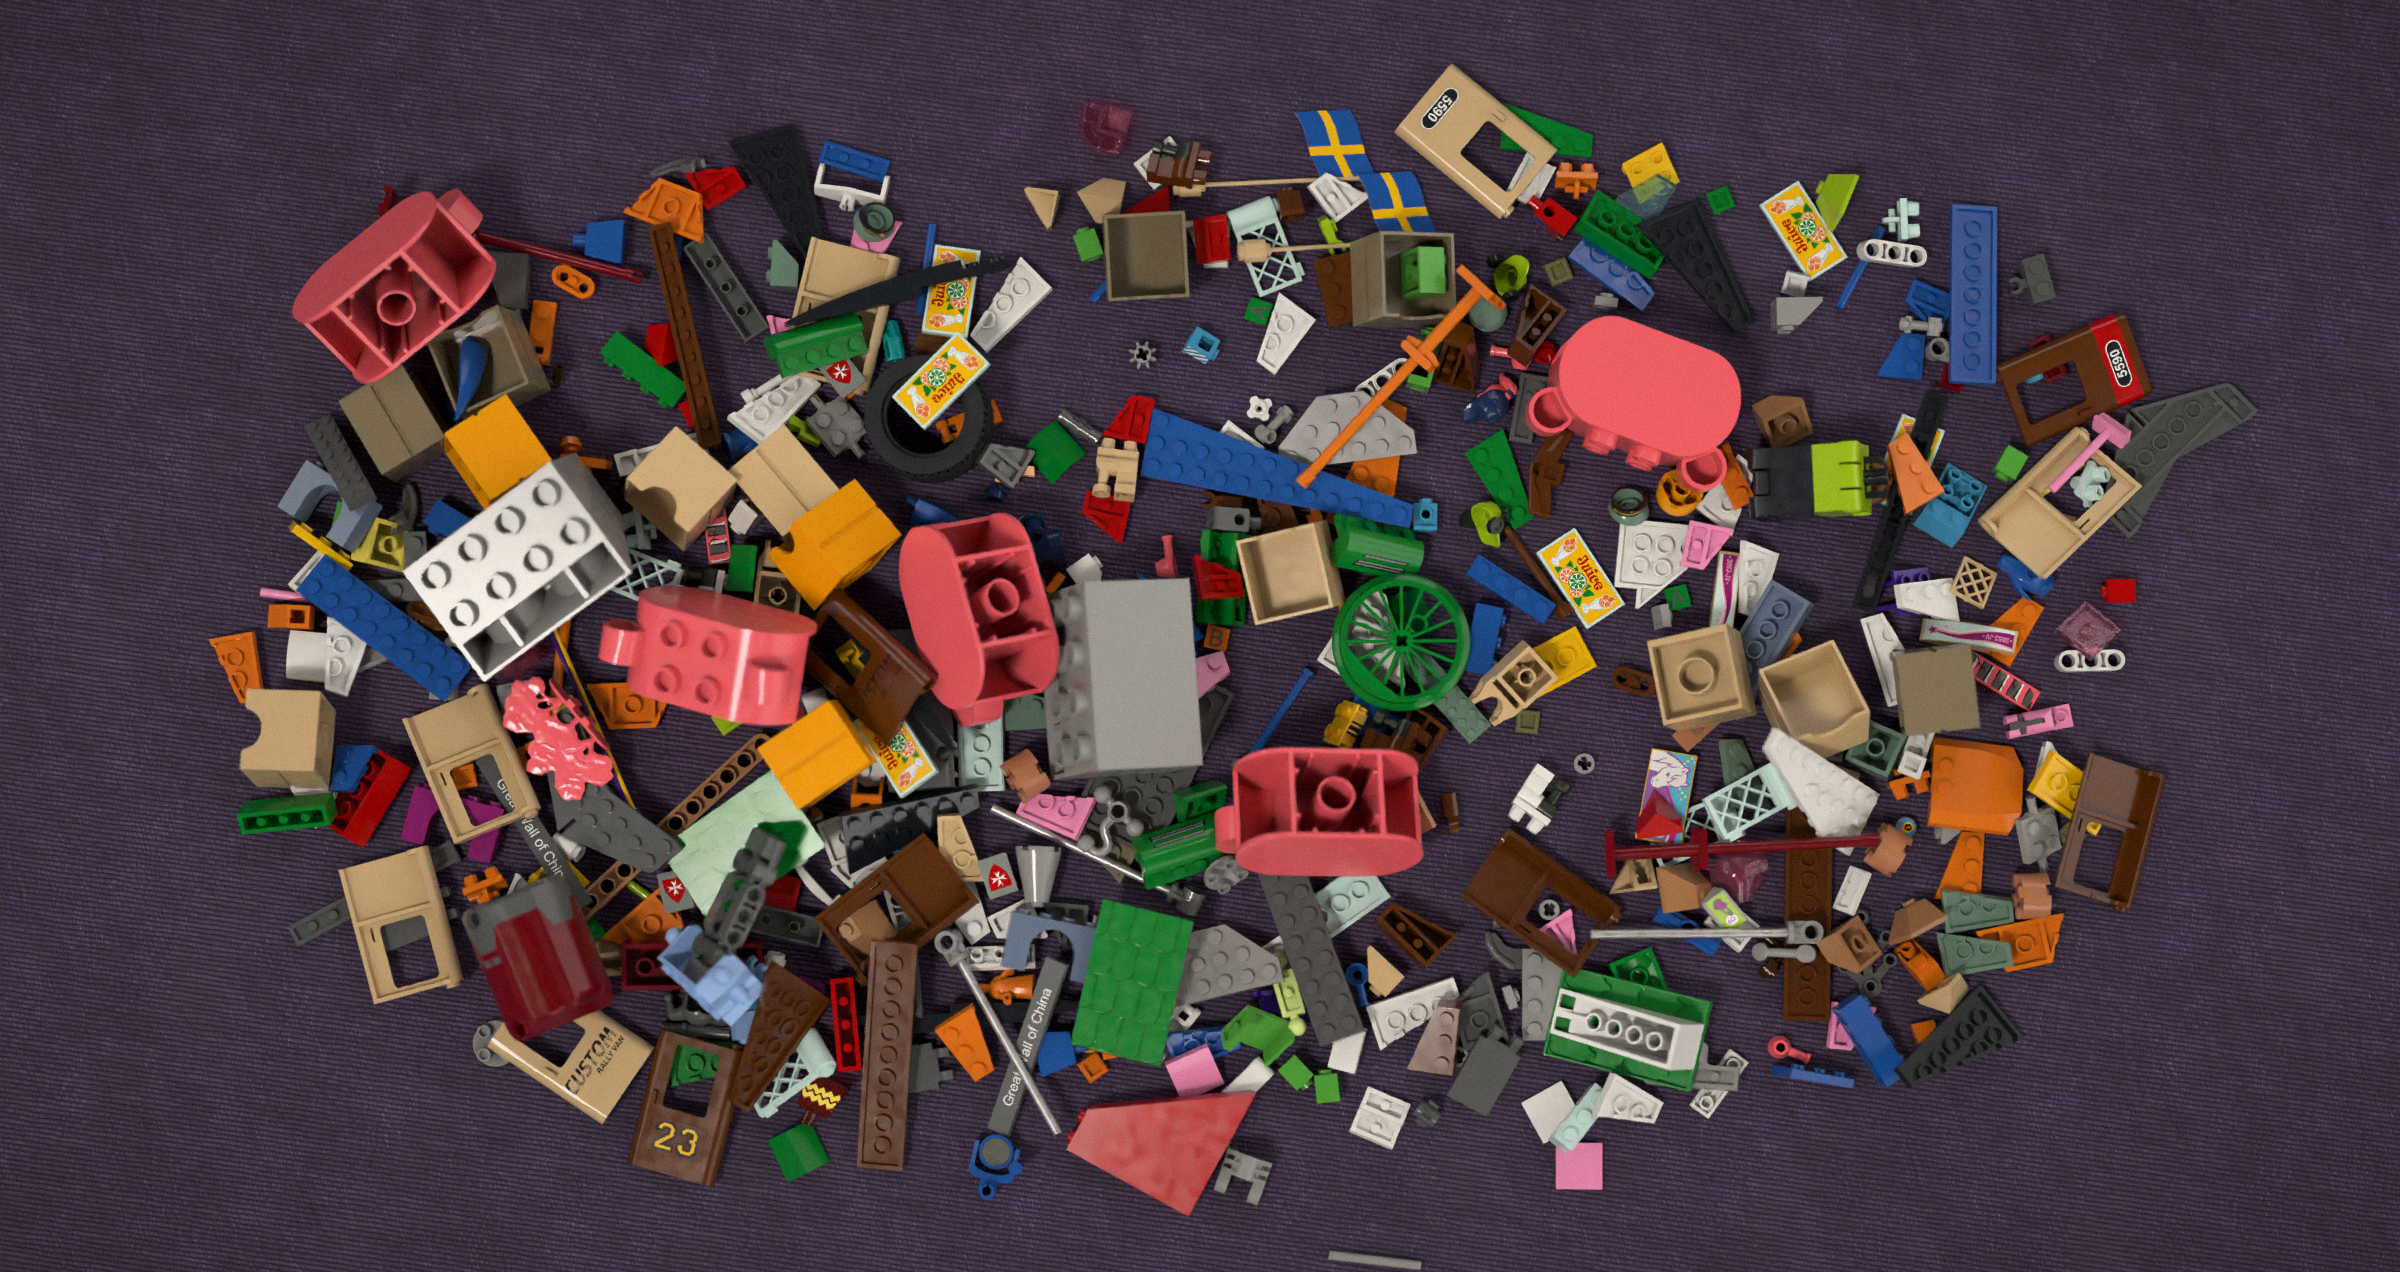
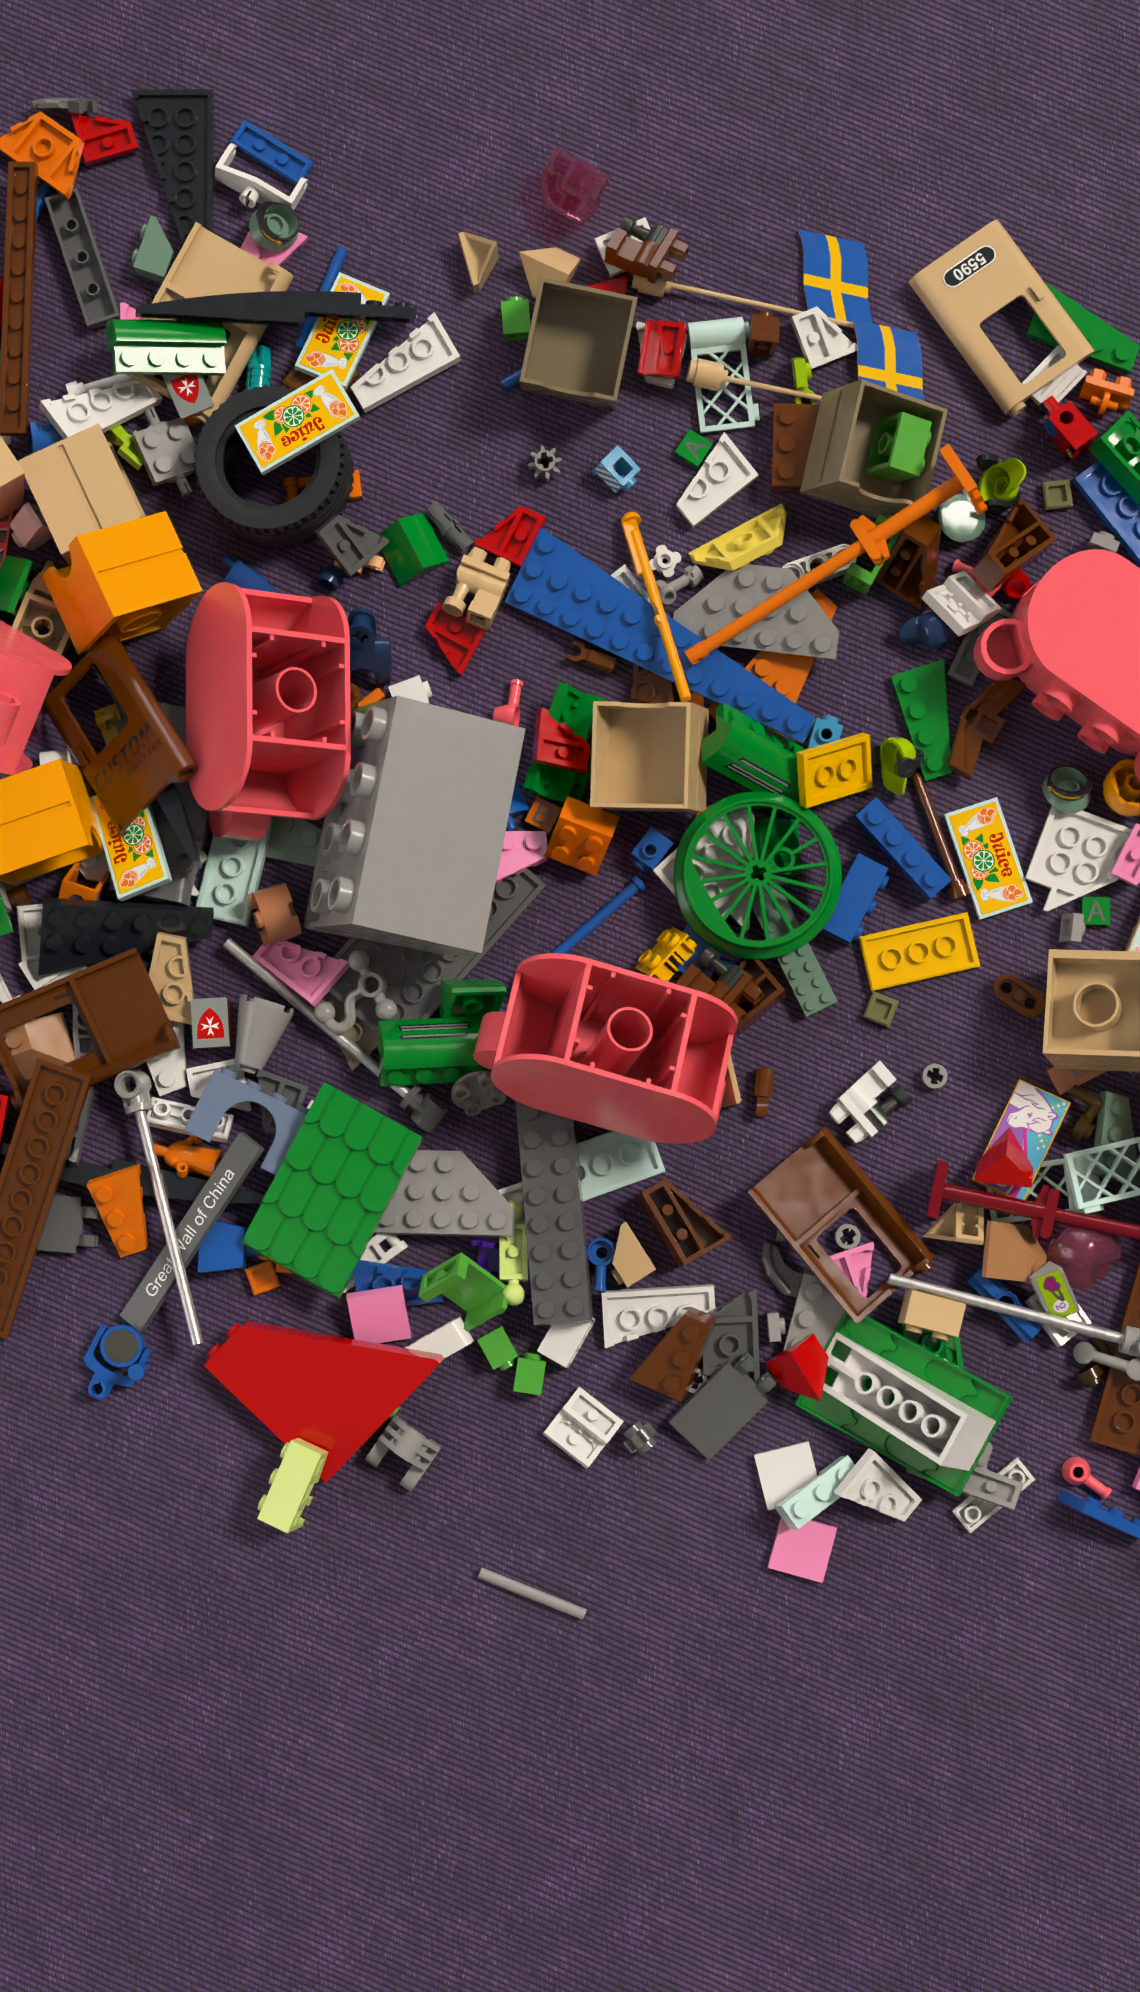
camera: 20 degrees right, 0 degrees up
(1163, 1224) = (292, 1485): none -> yellowish green wedge
(1222, 520) = (586, 676): dark grey torso -> none
(1223, 386) = (642, 567): none -> light orange bar
(1253, 648) = (581, 836): none -> orange brick
(1310, 644) = (651, 850): none -> blue brick
(1320, 377) = (744, 542): none -> light yellow wing
(1440, 542) = (834, 770): none -> yellow plate
(1505, 381) = (961, 603): none -> white slope
(1509, 687) = (871, 964): tan brick -> none
(1540, 1023) = (801, 1367): none -> red slope
(1631, 953) = (932, 1314): none -> tan brick
(1713, 772) = (1084, 1127): none -> dark brown plate

